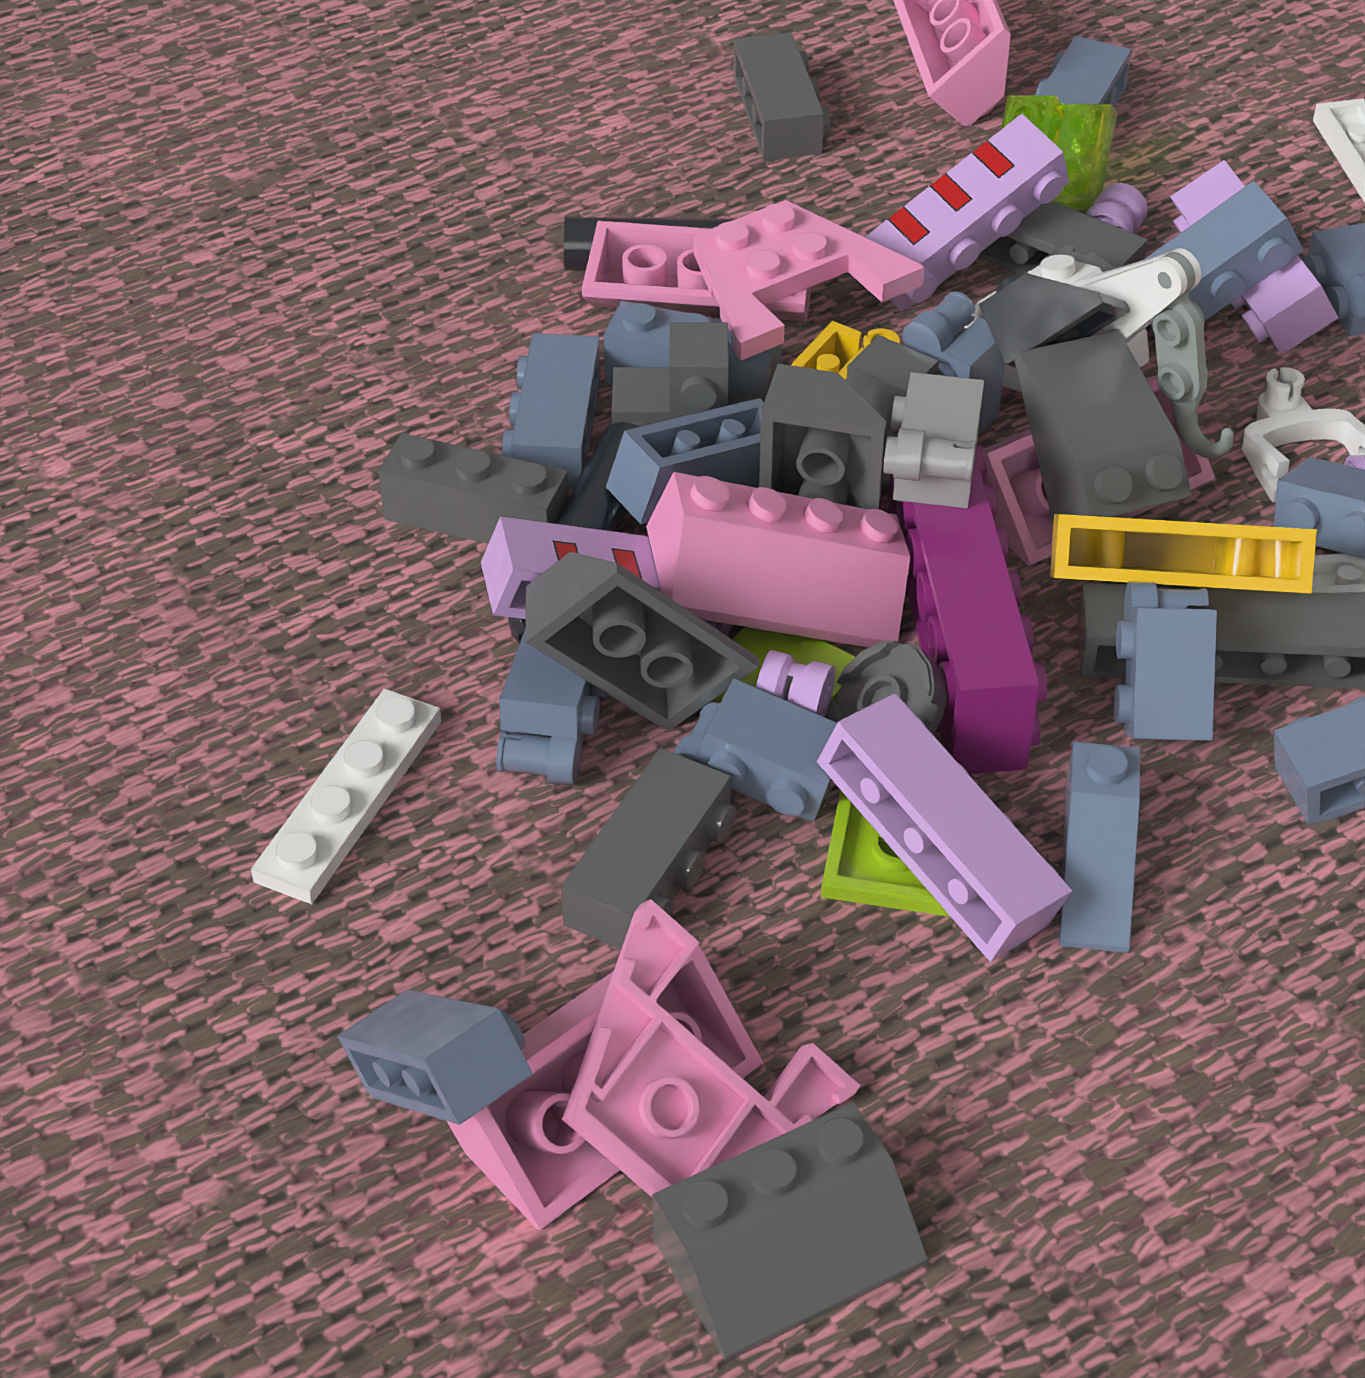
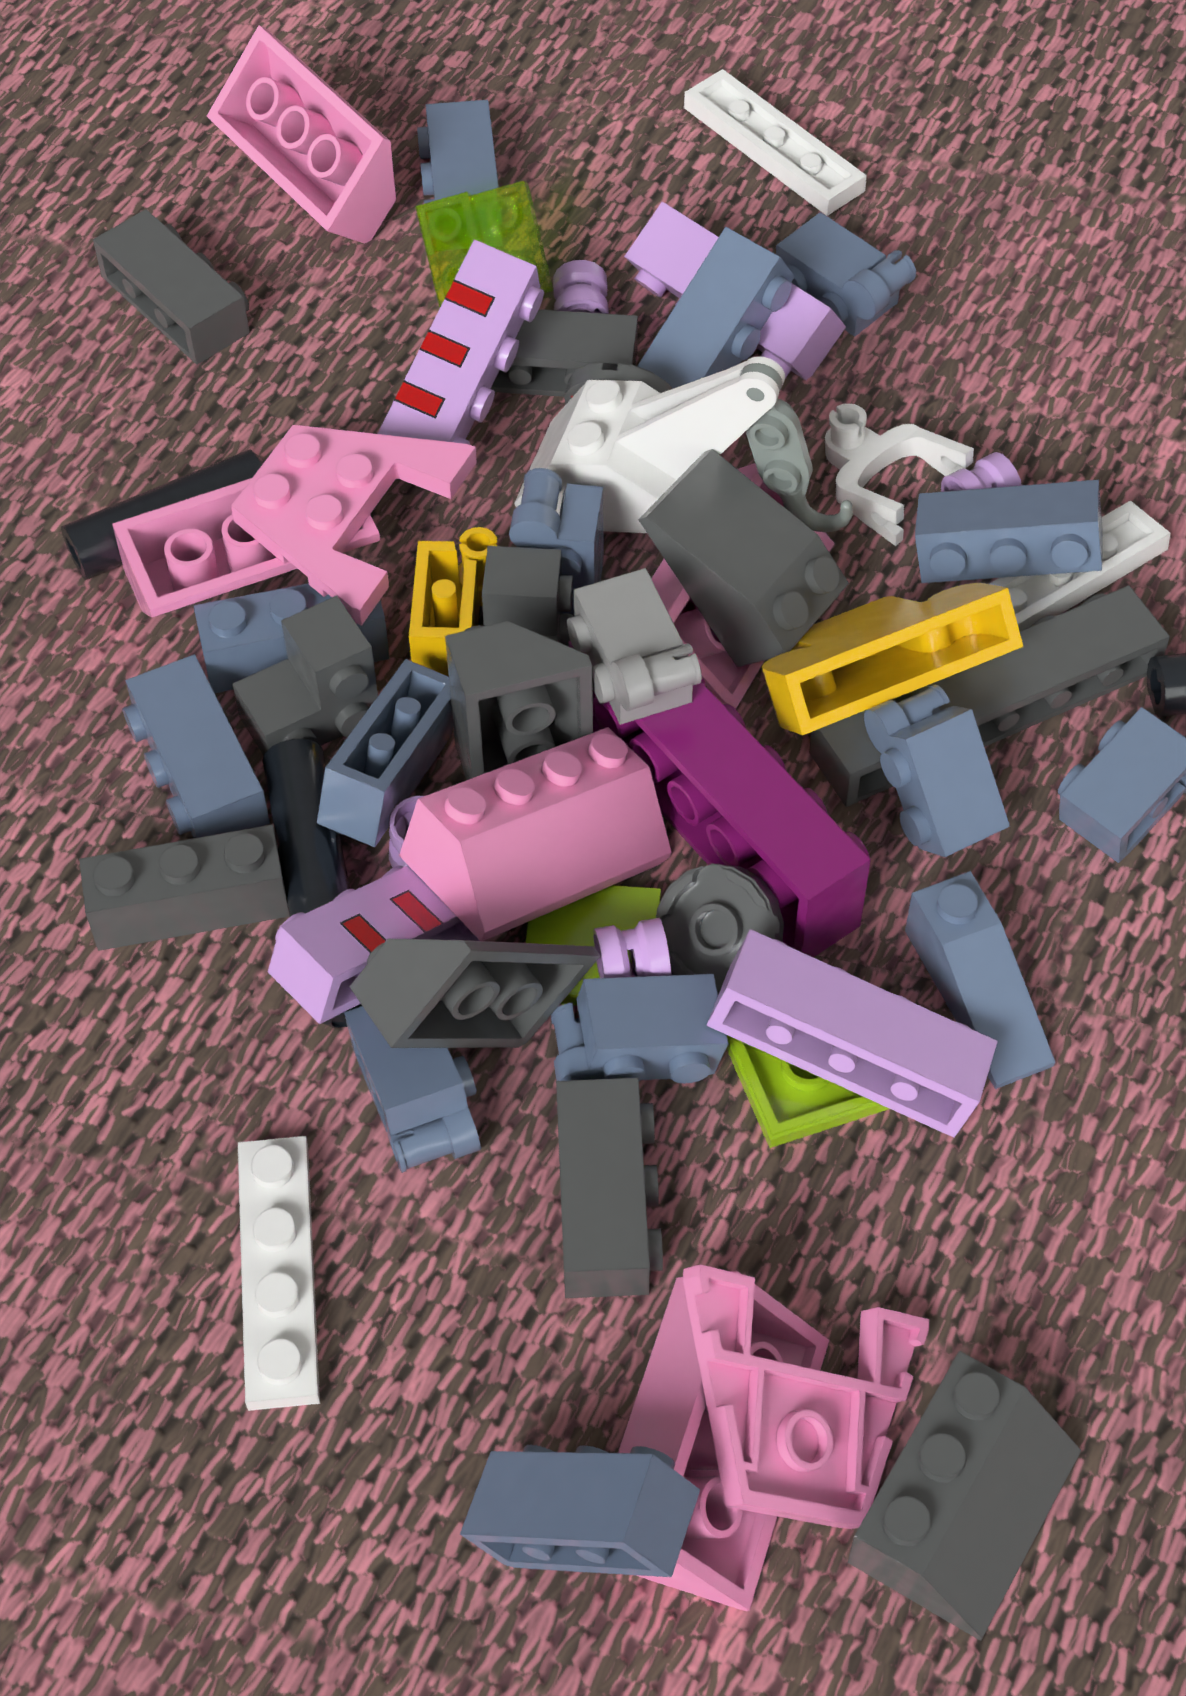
camera: 30 degrees left, 10 degrees up
(1043, 312) = (641, 464): black slope -> none

